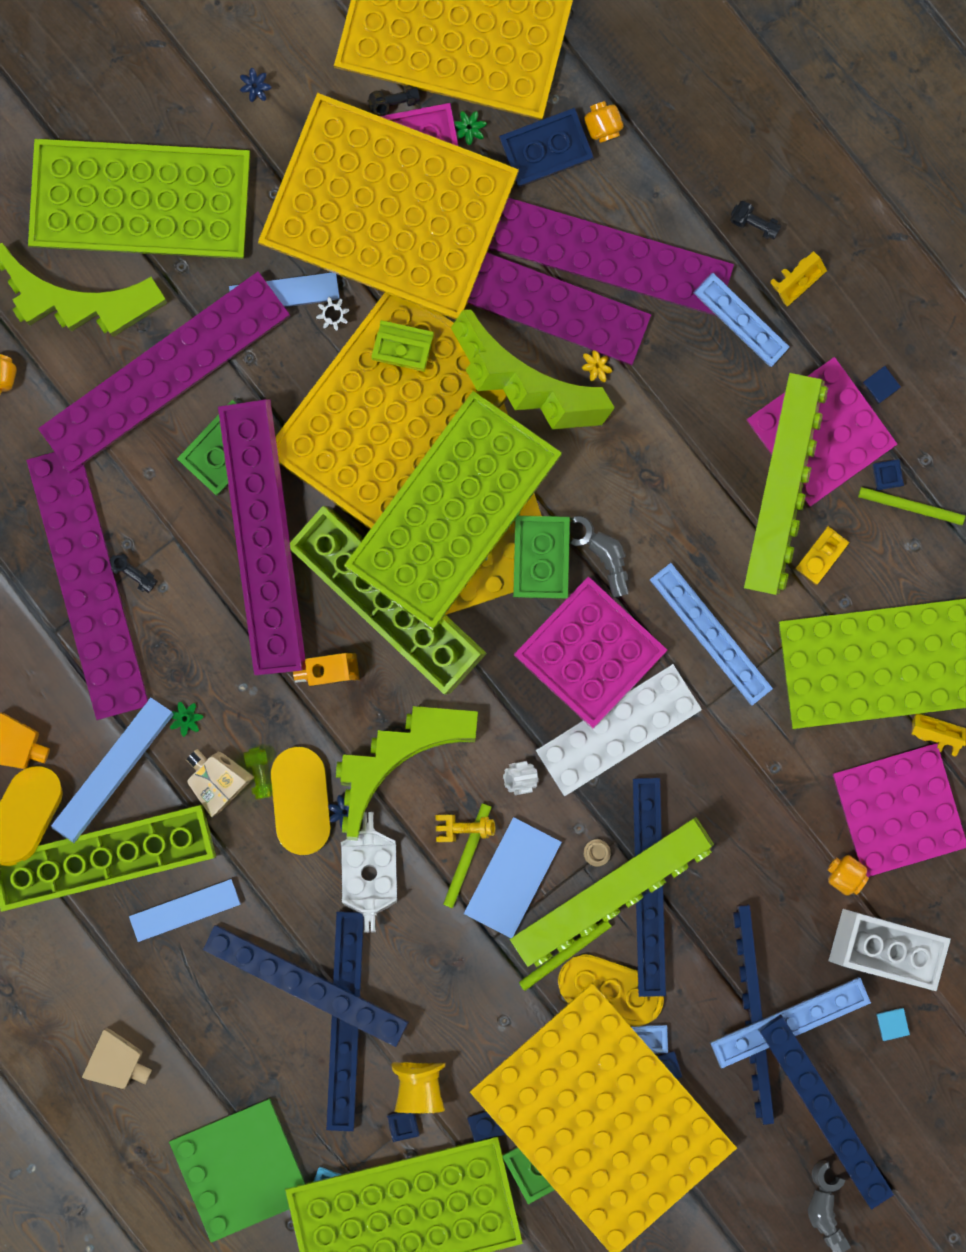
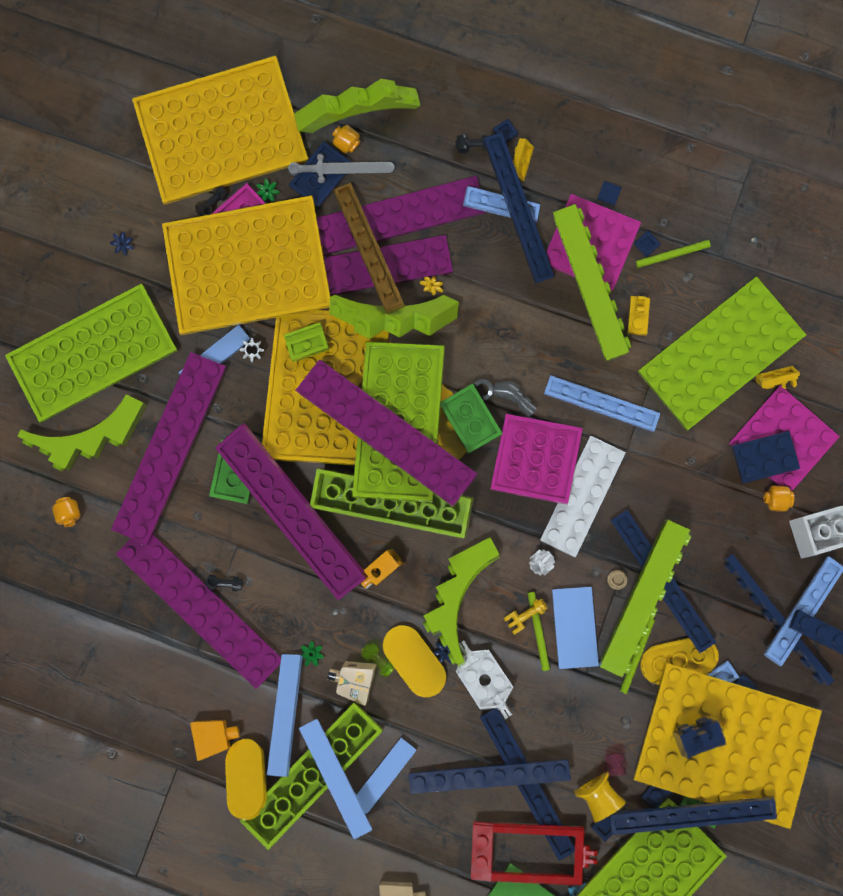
camera: 25 degrees left, 5 degrees down
(127, 878) = (335, 778): none -> light blue tile
(246, 1066) = (483, 853): none -> red animal
(428, 515) = (386, 433): none -> magenta plate
(460, 1061) = (615, 764): none -> clear pink wheel
(511, 1172) = (693, 815): none -> dark blue plate
(546, 276) = (368, 248): none -> pearl gold tile
(572, 153) = (340, 168): none -> light grey sword
(572, 1088) = (699, 737): none -> dark blue hinge
(641, 86) = (354, 101): none -> lime arch
(757, 337) = (518, 207): none -> dark blue plate
(803, 230) = (507, 129): none -> dark blue tile
(862, 817) = (765, 457): none -> dark blue plate

